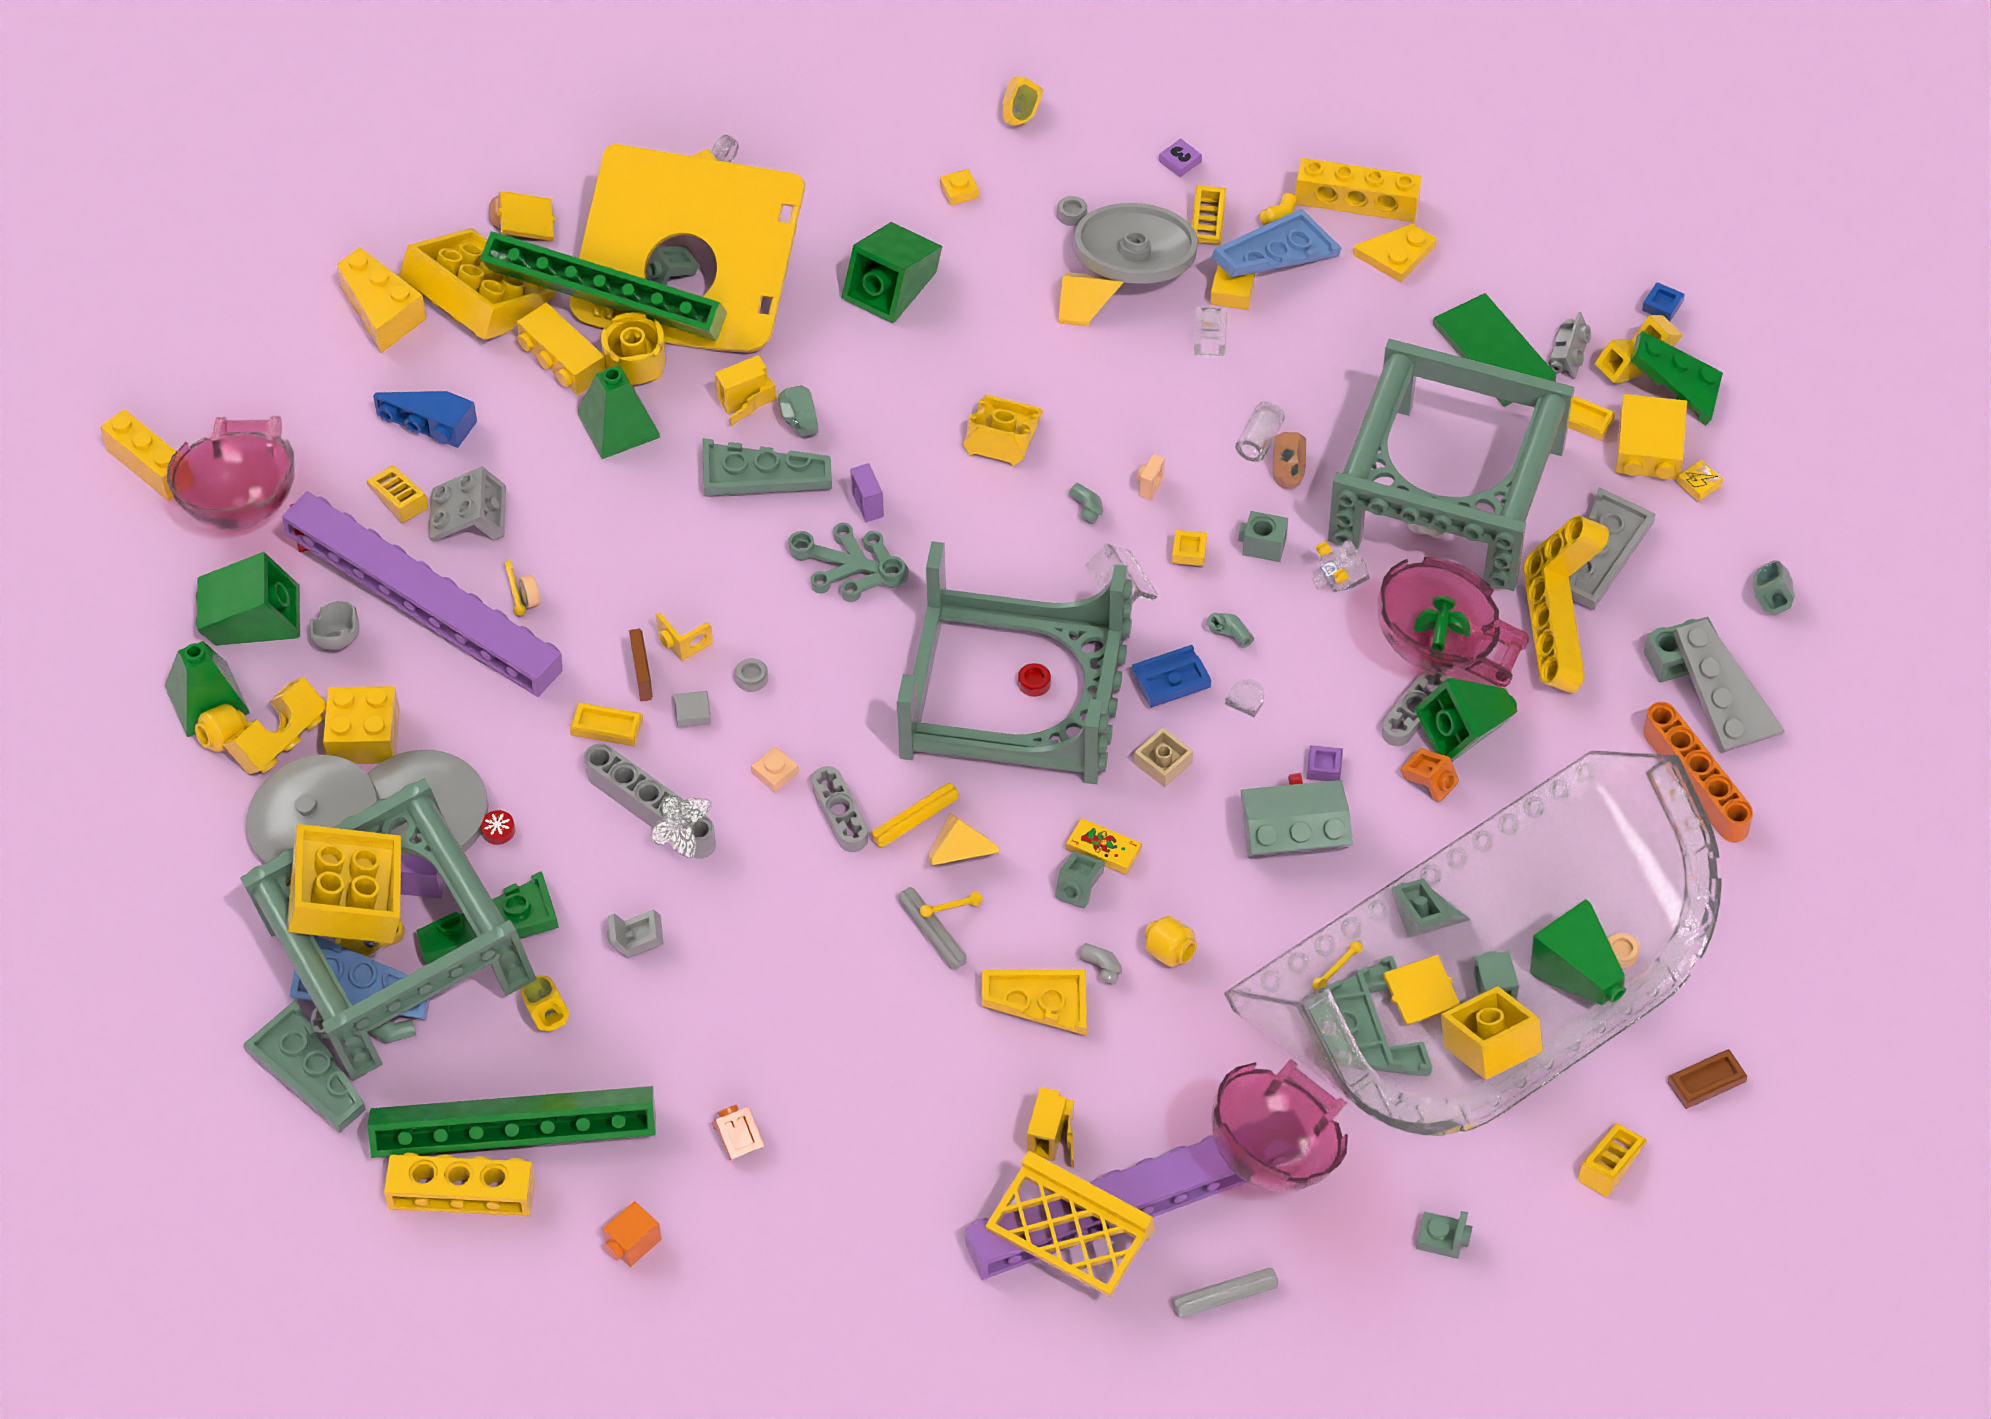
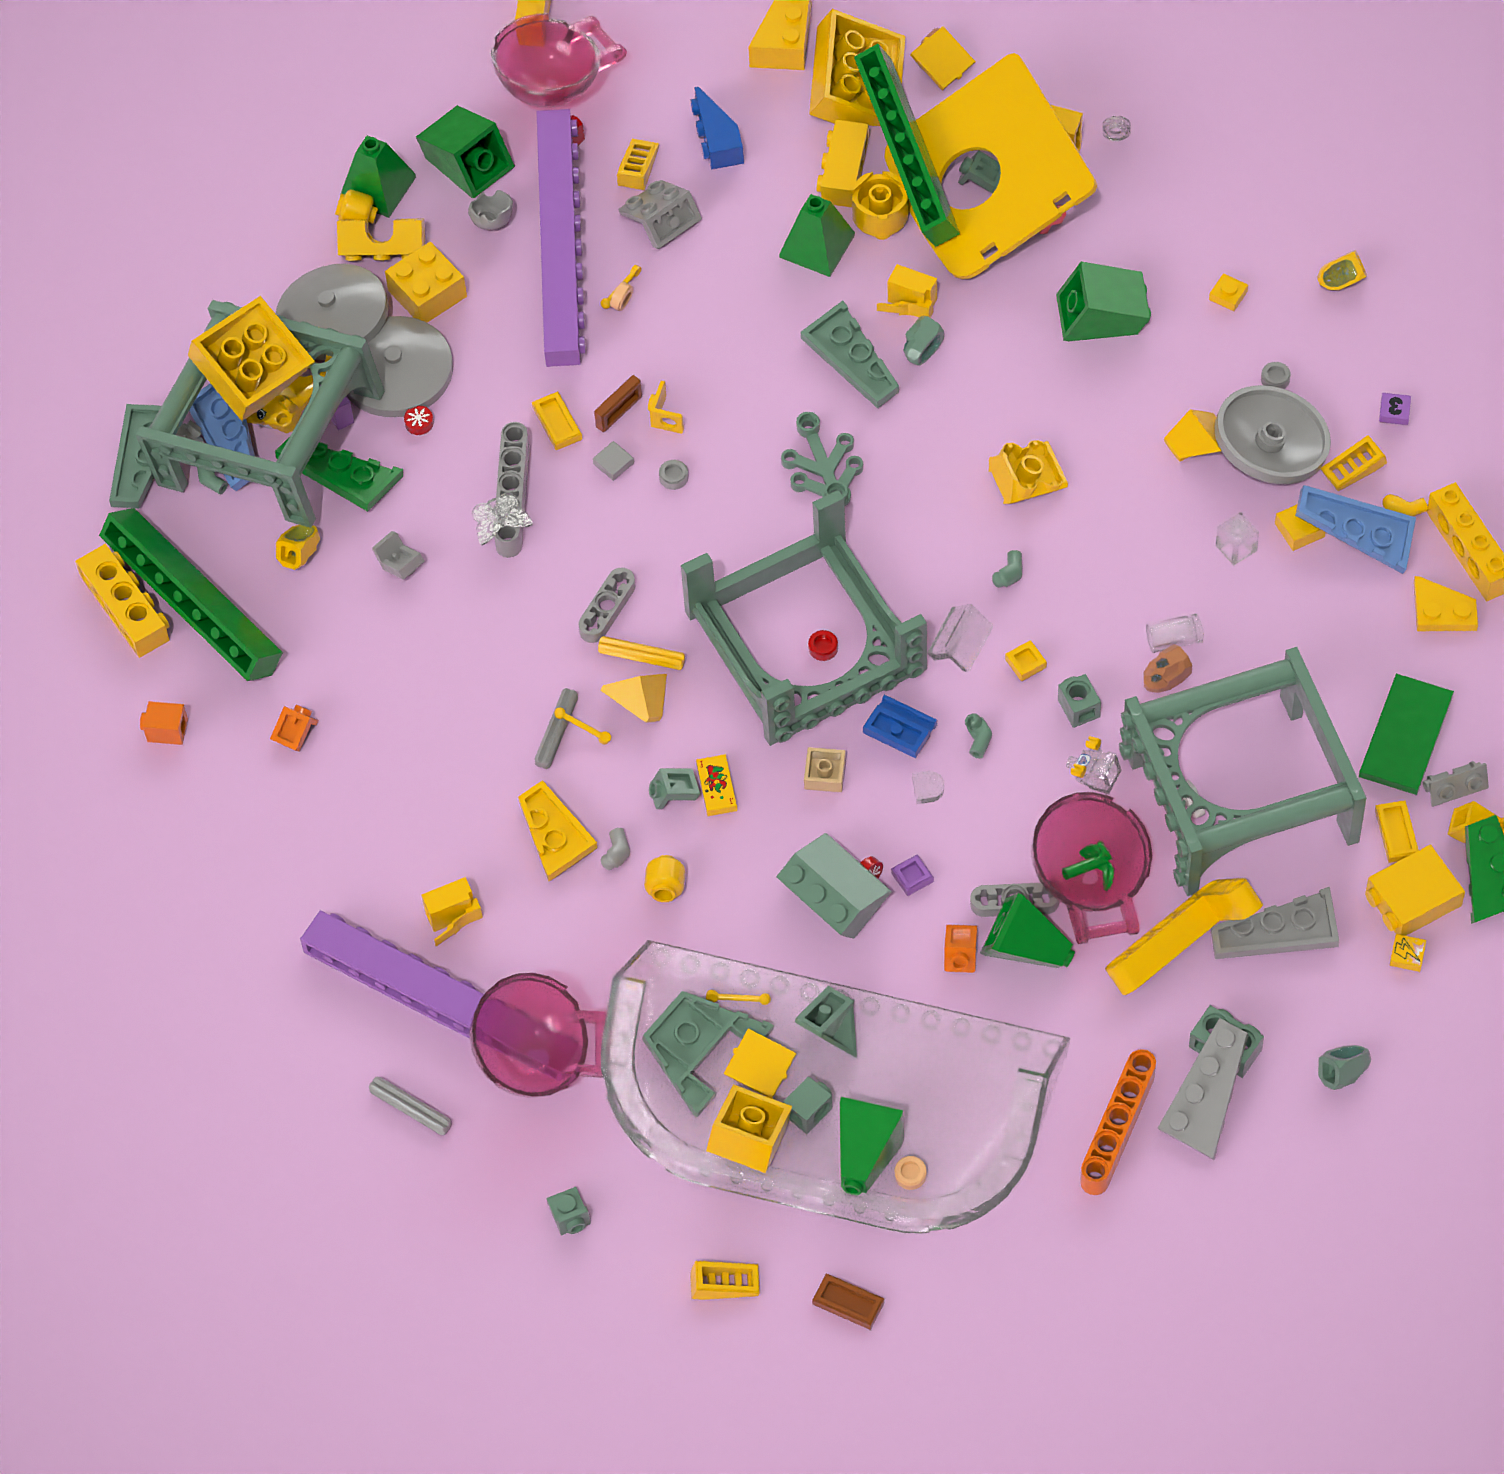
camera: 55 degrees right, 5 degrees up
(775, 769) = (606, 544): light nougat plate -> none
(867, 492) = (886, 430): medium lavender piece -> none
(1093, 1203) = (394, 971): yellow fence -> none
(1151, 476) = (1067, 593): light nougat plate -> none

